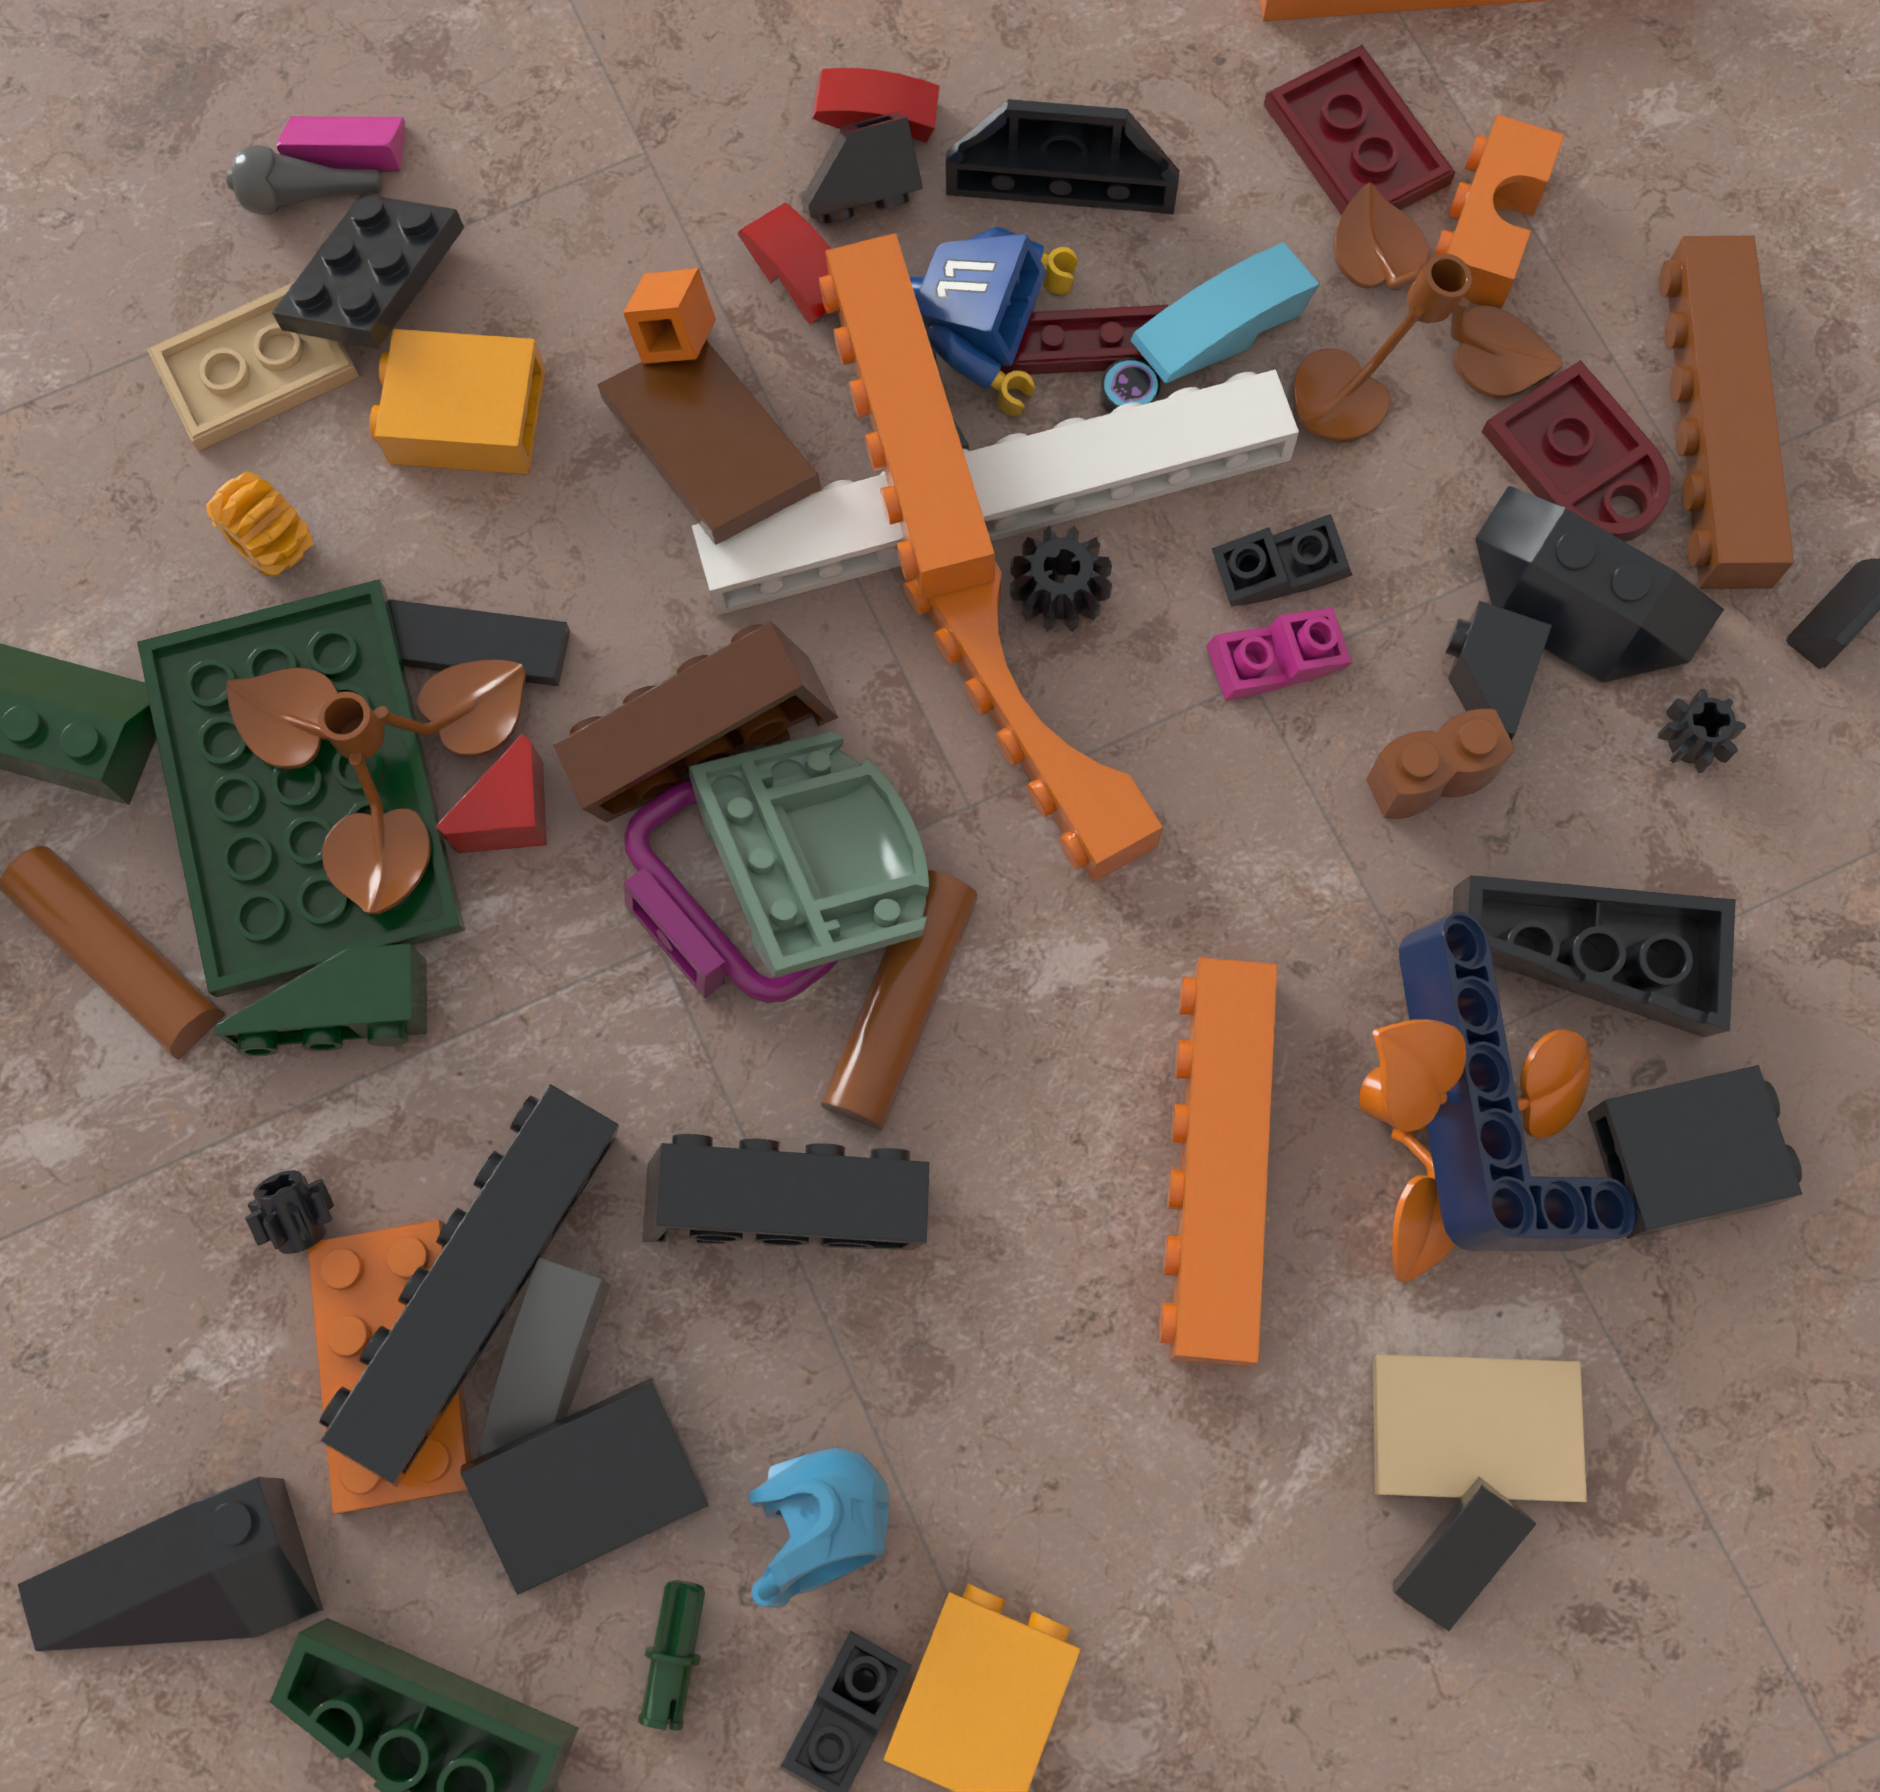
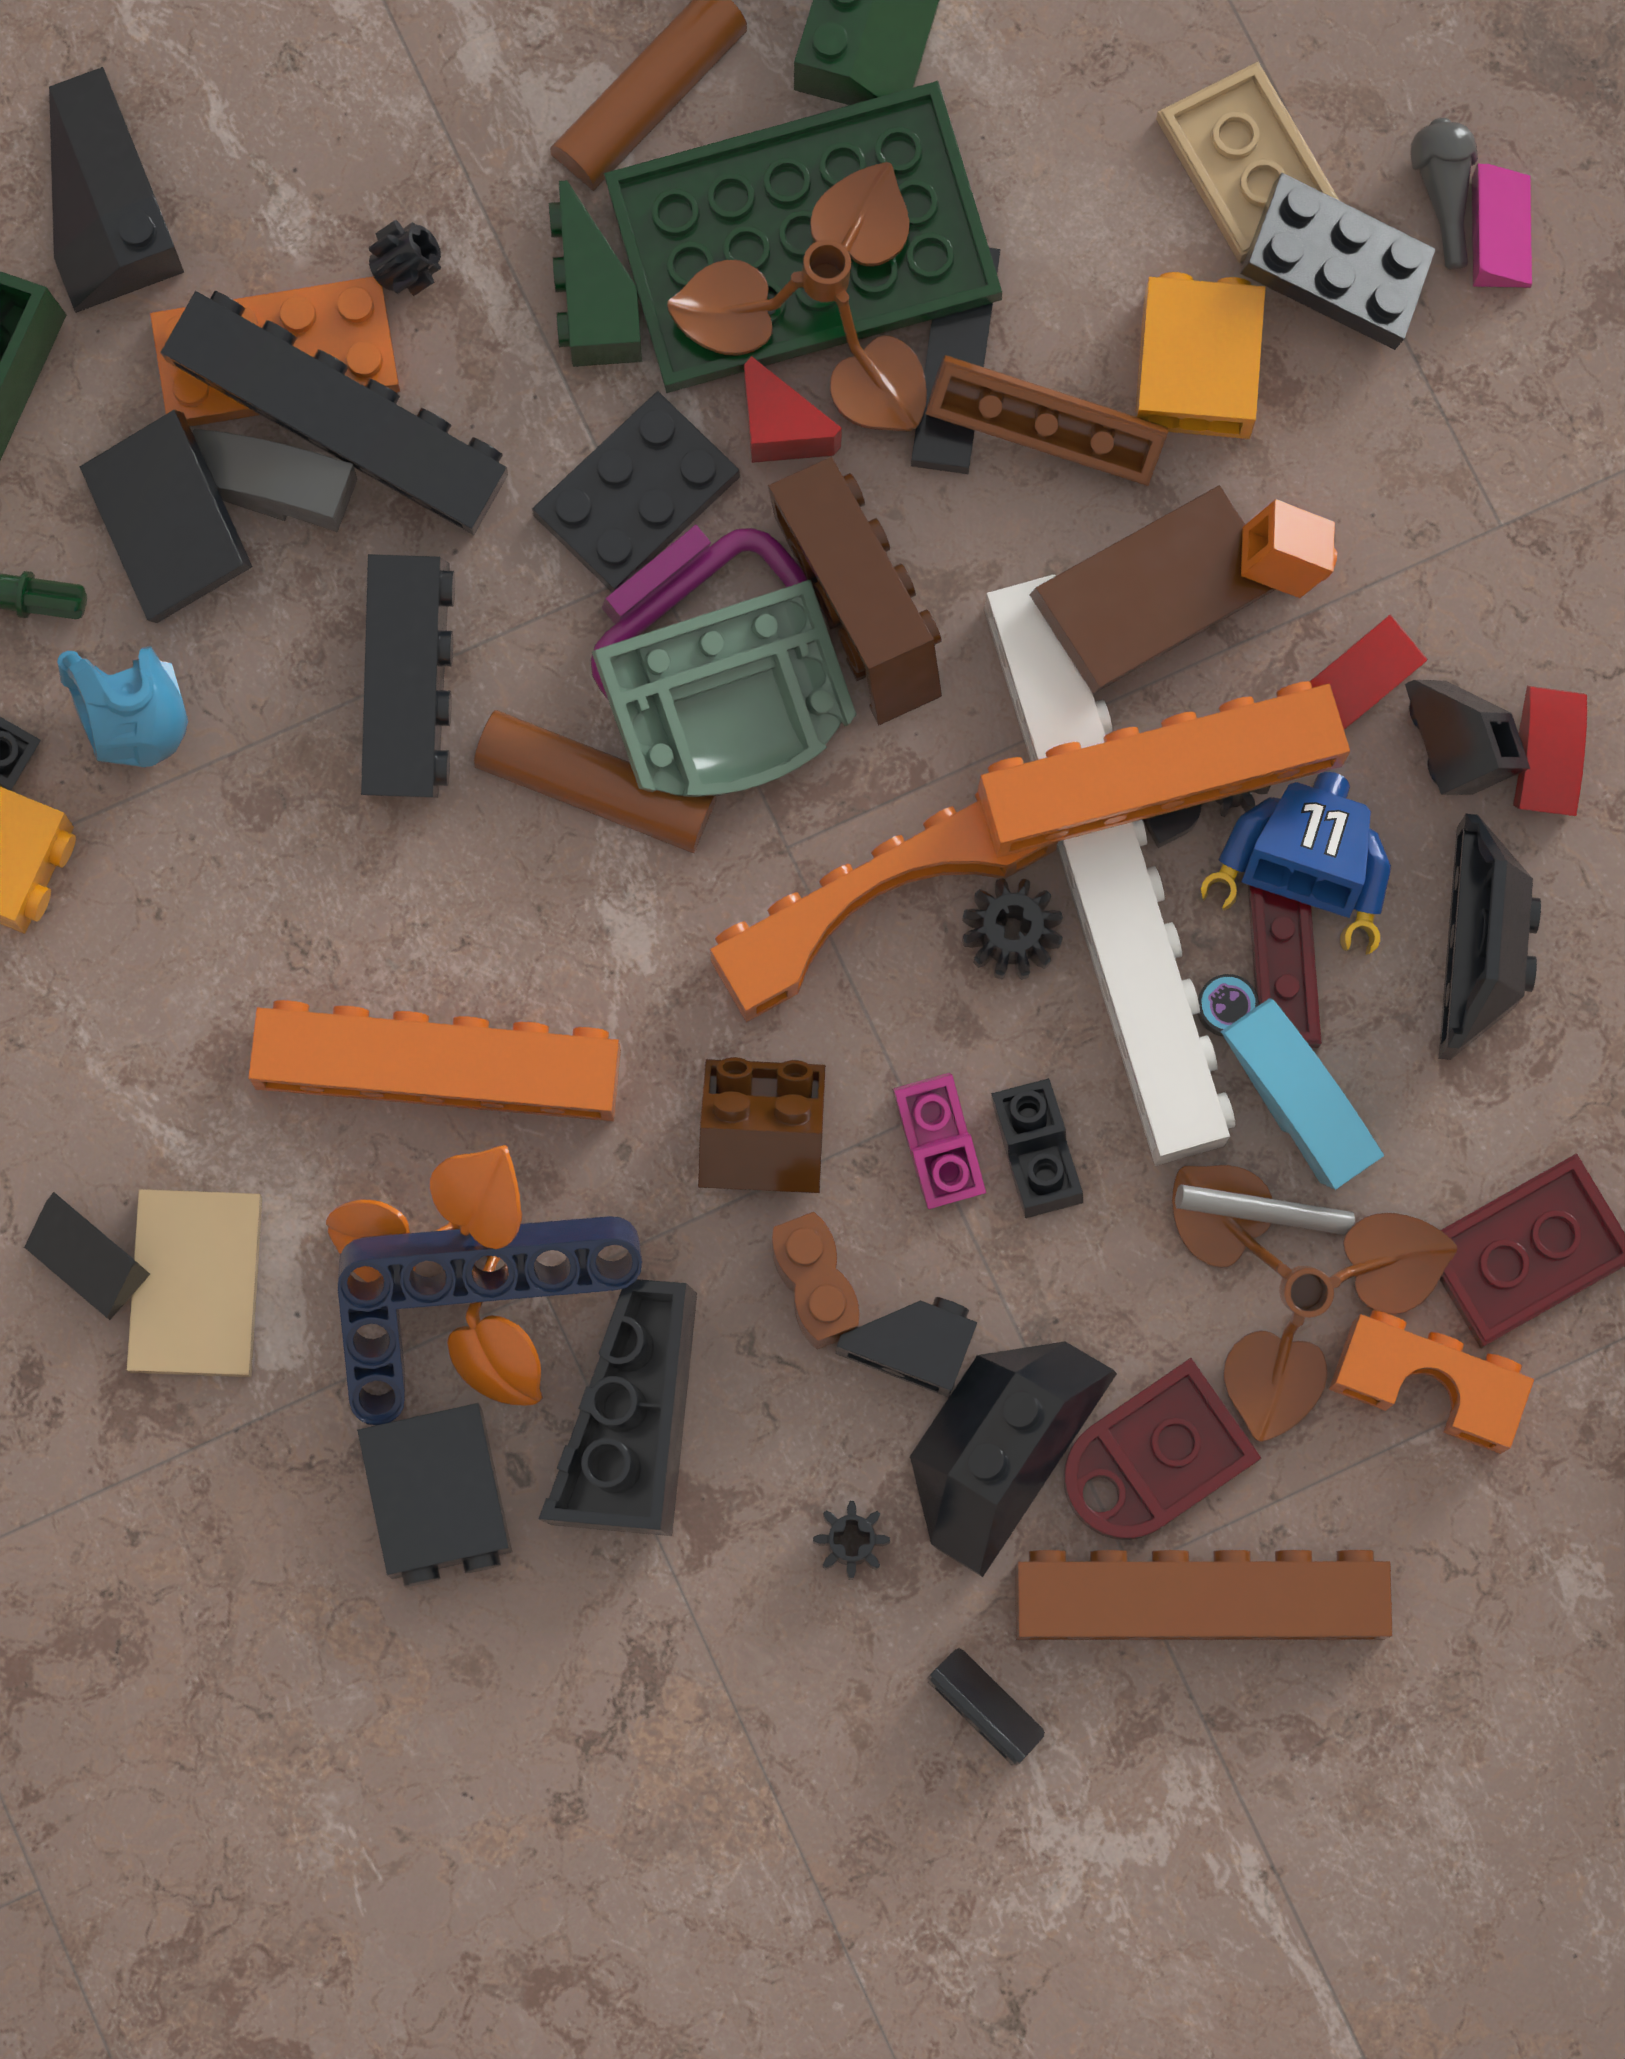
camera: 85 degrees right, 5 degrees up
(259, 524) = (1058, 179): light orange gear -> none
(520, 543) = (1046, 420): none -> dark orange brick
(577, 961) = (636, 492): none -> black plate
(1276, 819) = (761, 1125): none -> reddish brown slope
(1339, 352) = (1264, 1209): none -> light grey bar

